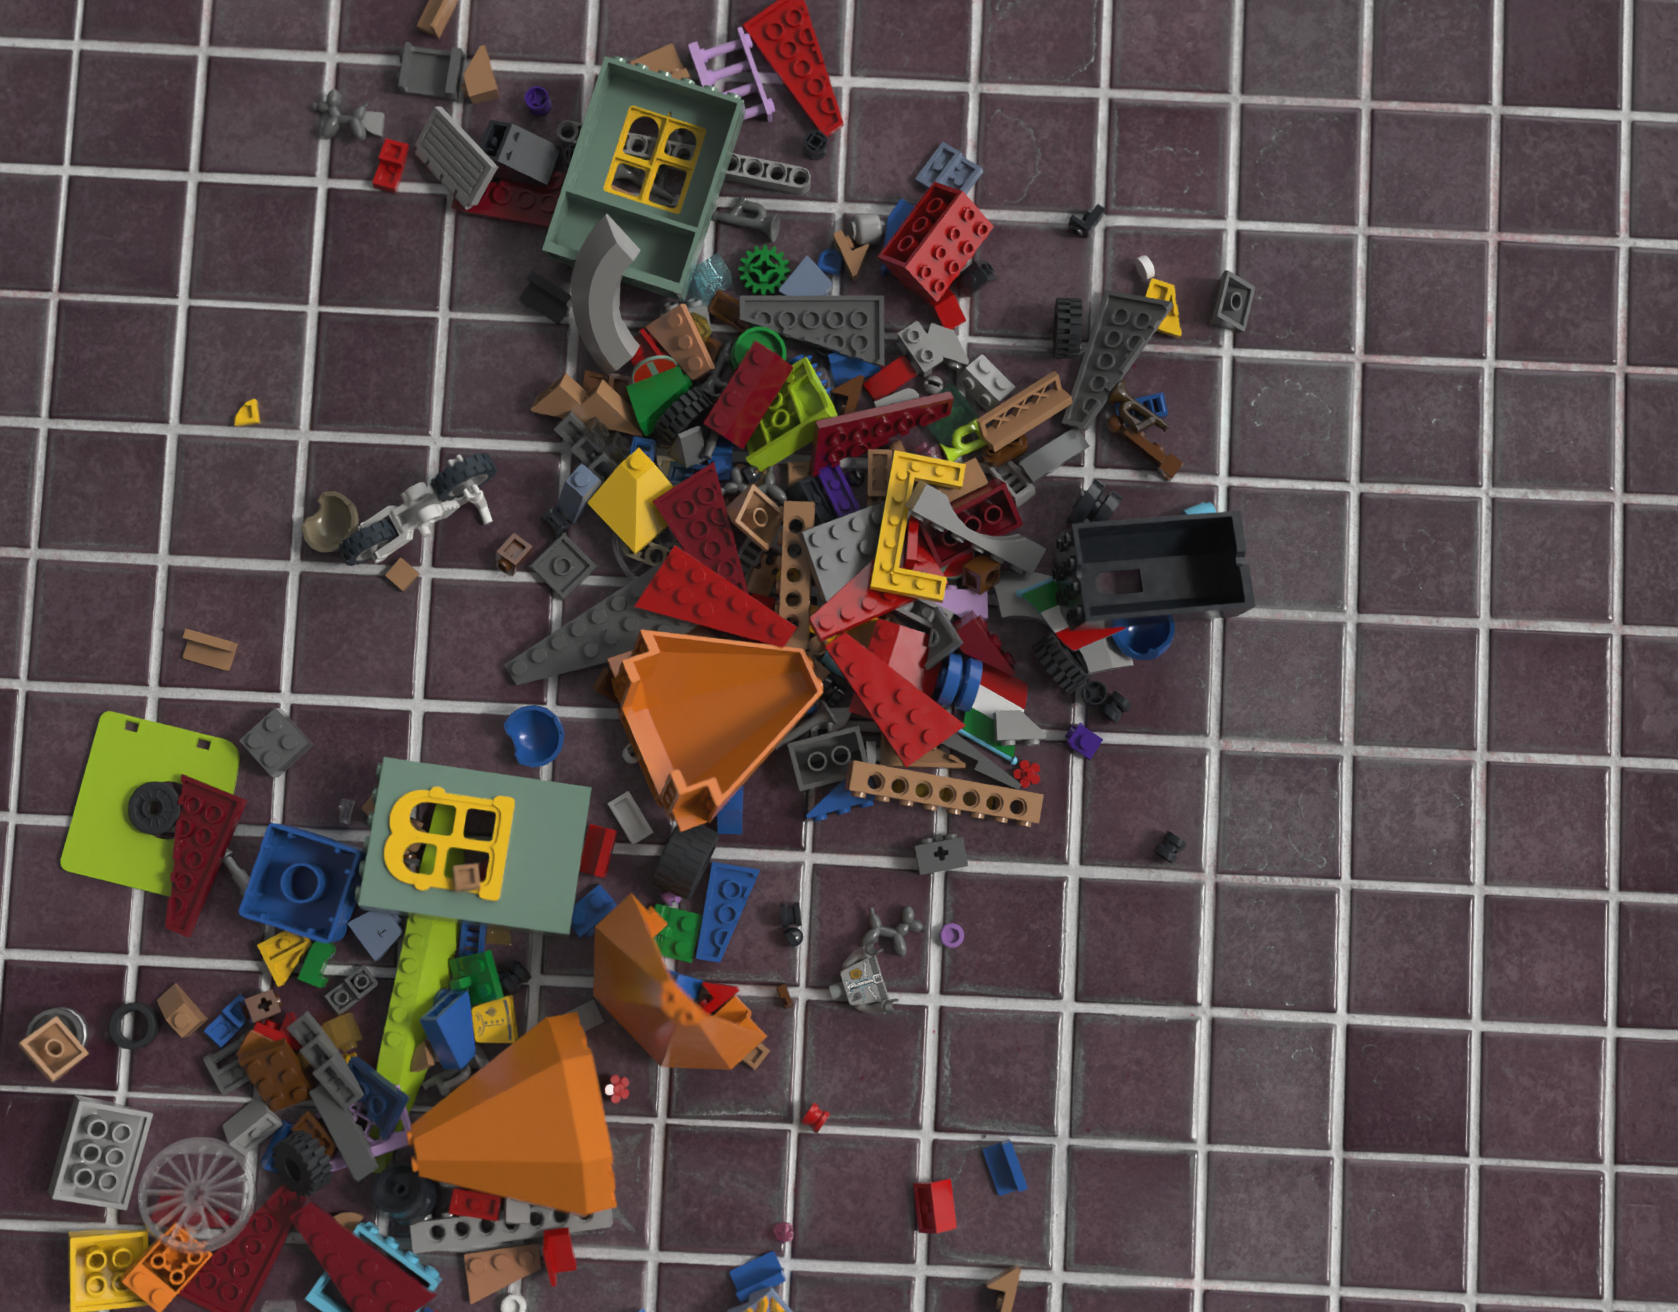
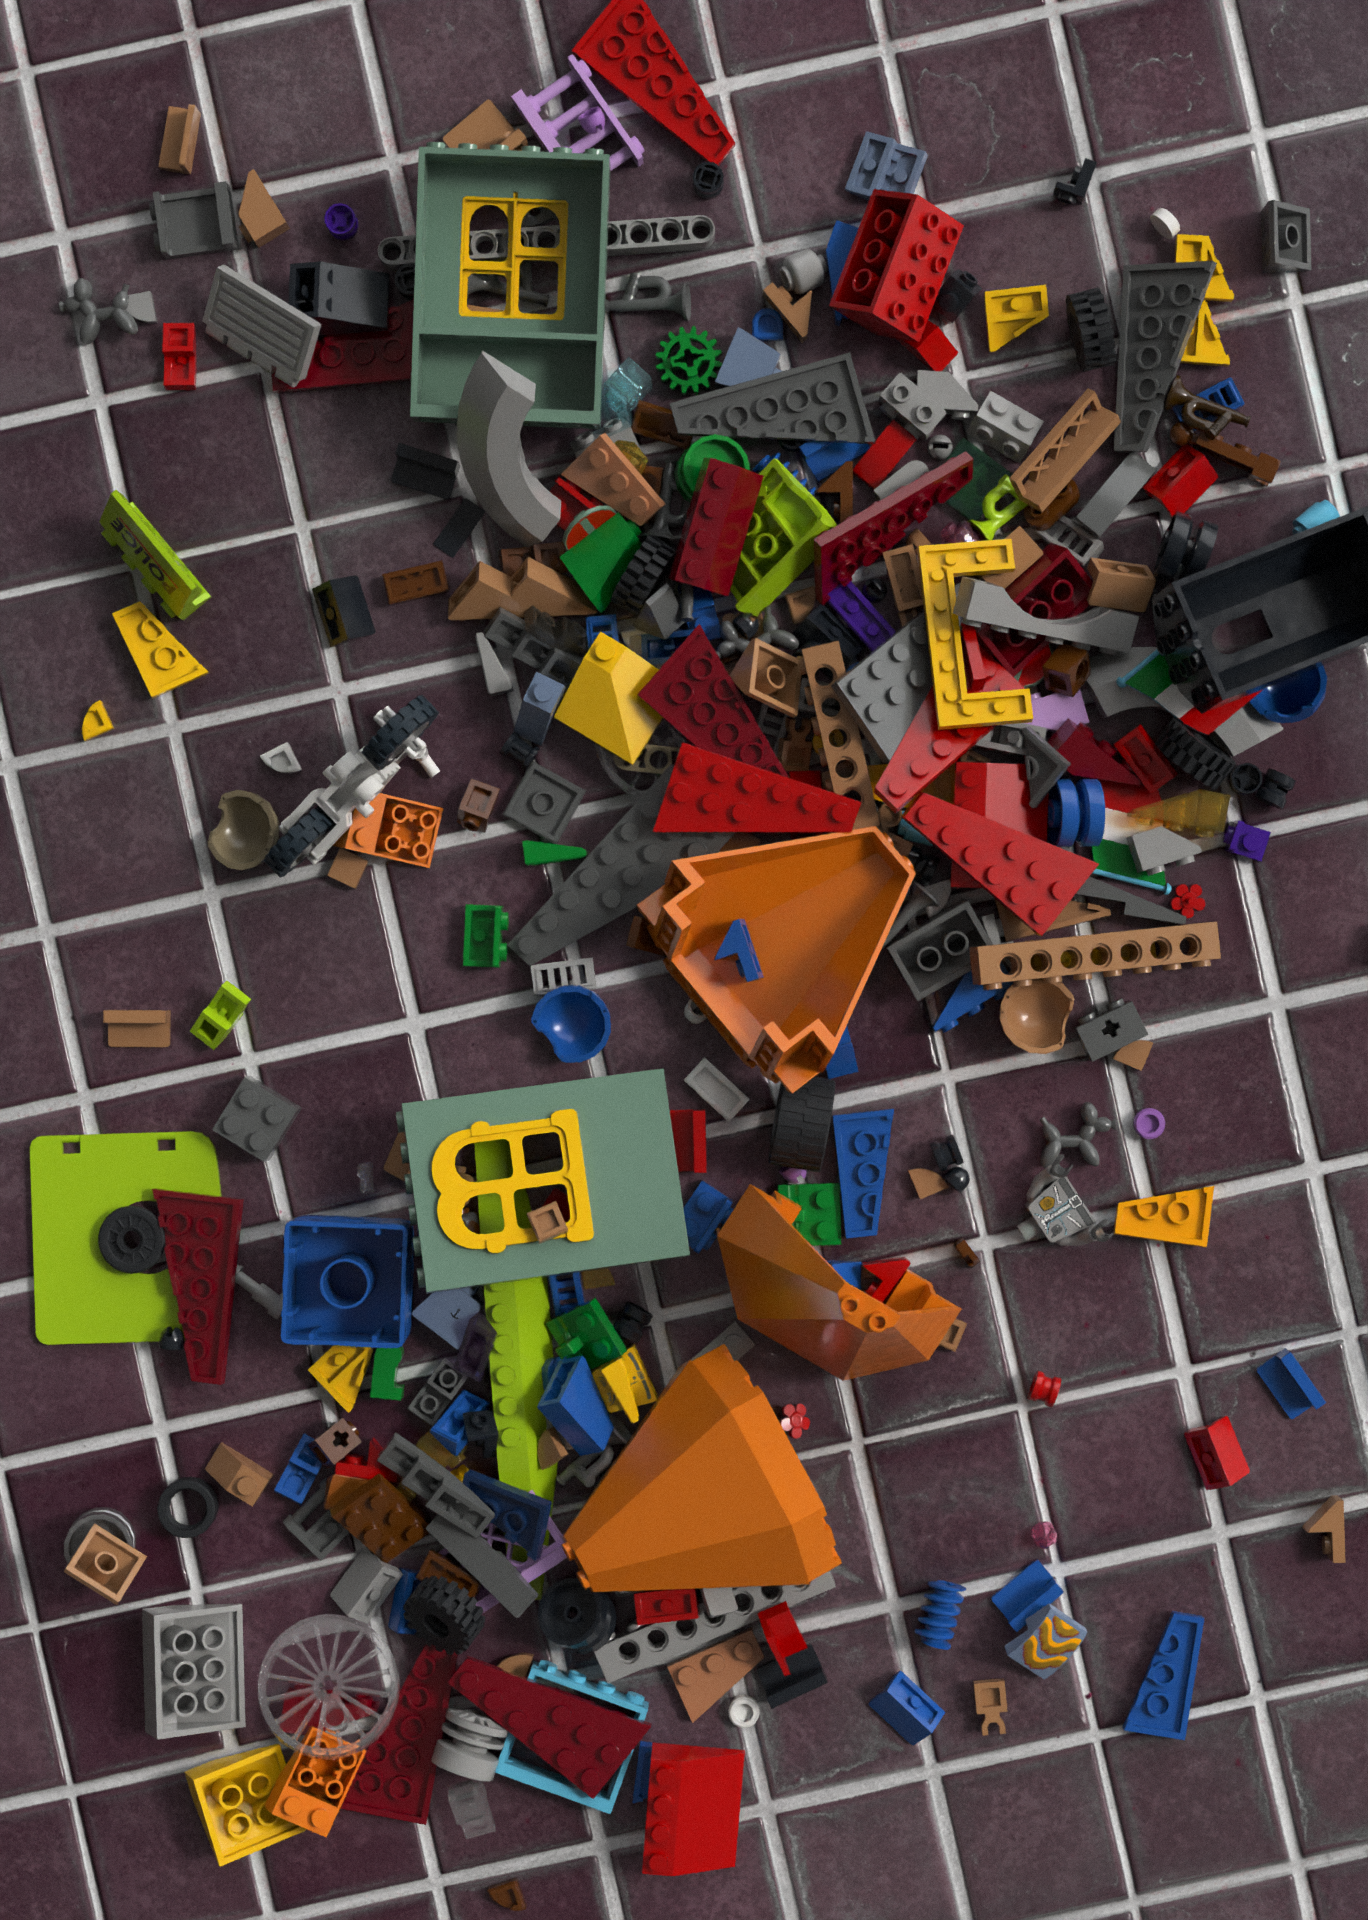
camera: 25 degrees left, 5 degrees up
(161, 892) = (171, 1339): none -> black hinge
(273, 657) = (220, 1015): none -> lime brick
(289, 1277) = (468, 1750): none -> light grey wheel
(307, 375) = (156, 652): none -> yellow wing
(325, 304) = (152, 556): none -> lime piece
(361, 1017) = (450, 1428): none -> blue slope
(375, 1026) = (482, 1429): none -> black bracket
(377, 480) = (282, 759): none -> white tile
(388, 962) = (476, 1347): none -> clear purple slope
(444, 554) = (395, 830): none -> orange slope
(455, 382) = (343, 610): none -> black panel
(488, 653) = (484, 935): none -> green bracket
(489, 1021) = (618, 1379): none -> yellow slope
(515, 377) = (415, 582): none -> reddish brown plate
(541, 691) = (537, 975): none -> light grey slope
(550, 603) = (545, 853): none -> green slope
(553, 460) = (494, 674): none -> light grey slope
(560, 346) = (459, 527): none -> black sticker
(568, 1289) = (805, 1676): none -> black panel
(677, 710) = (739, 942): none -> blue slope
(685, 1272) = (940, 1613): none -> blue piece
(742, 76) = (592, 118): none -> medium lavender hinge
(770, 933) = (926, 1182): none -> medium nougat tile
(887, 827) = (1036, 1015): none -> medium nougat cylinder
(946, 1012) = (1168, 1218): none -> light orange wing
(954, 878) = (1134, 1054): none -> medium nougat tile
(1014, 302) = (1013, 312): none -> yellow wing
(1022, 657) = (1145, 759): none -> red panel
(1038, 522) = (1120, 585): none -> medium nougat panel
(1049, 706) = (1195, 810): none -> clear yellow slope
(1106, 458) = (1181, 480): none -> red panel
(1150, 361) = (1204, 342): none -> yellow wing

